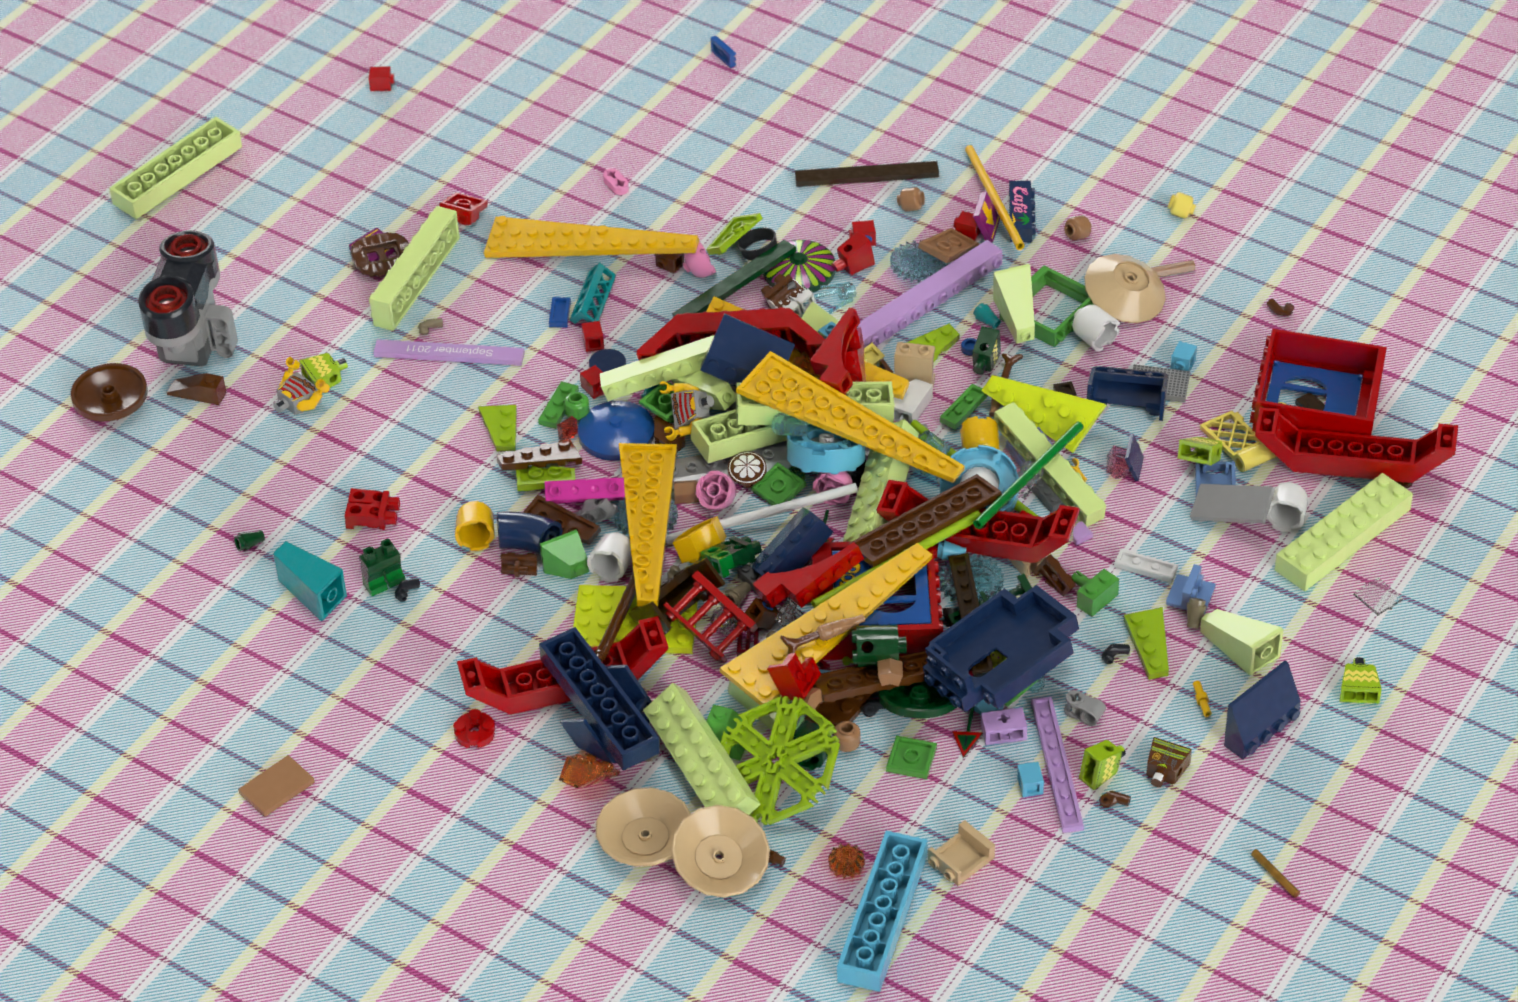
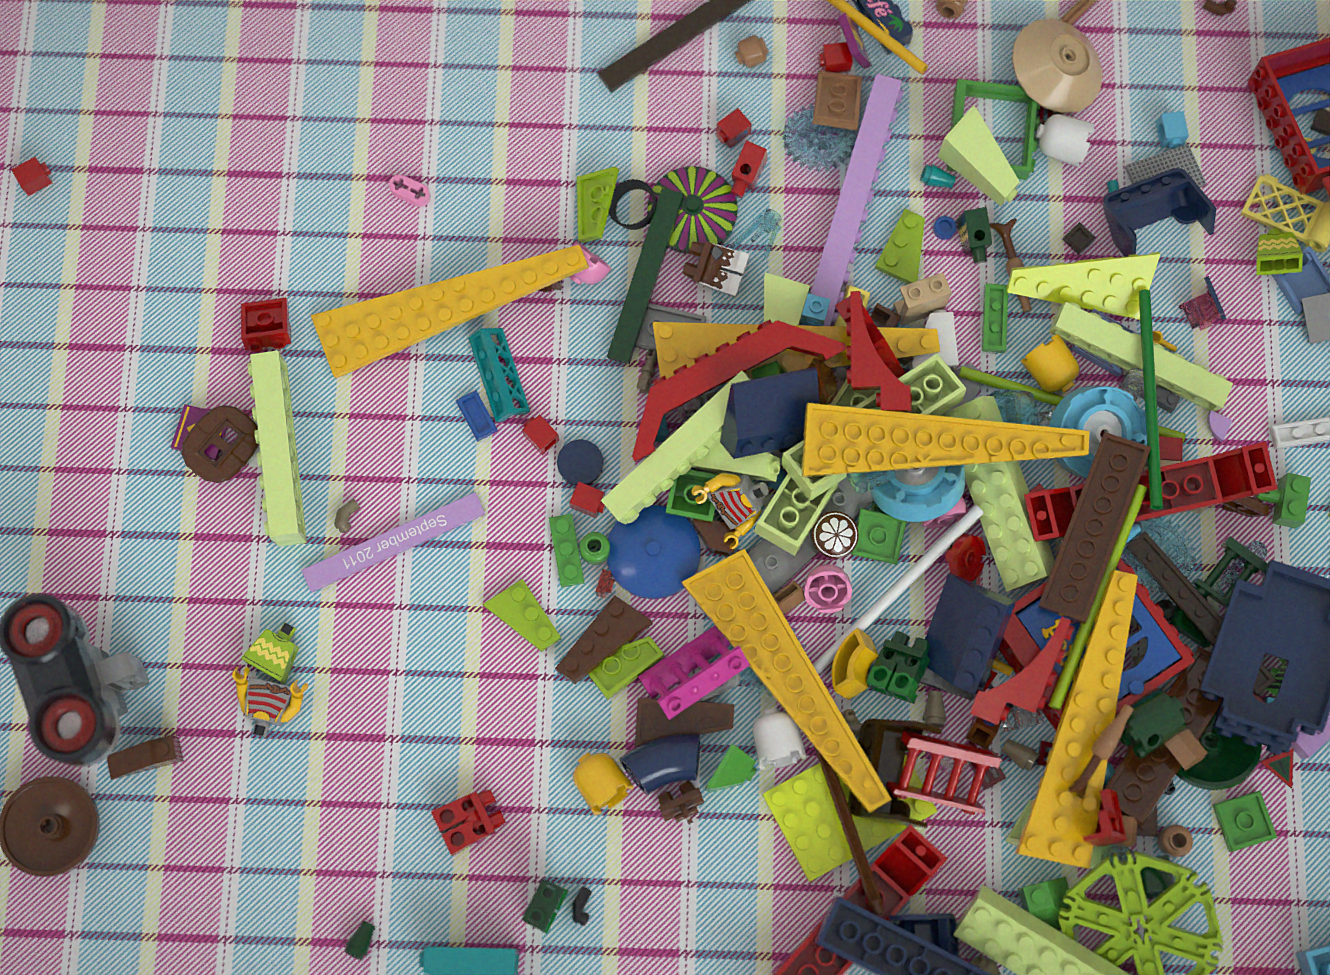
camera: 35 degrees left, 30 degrees up
(836, 509) = (966, 556): none -> red plate

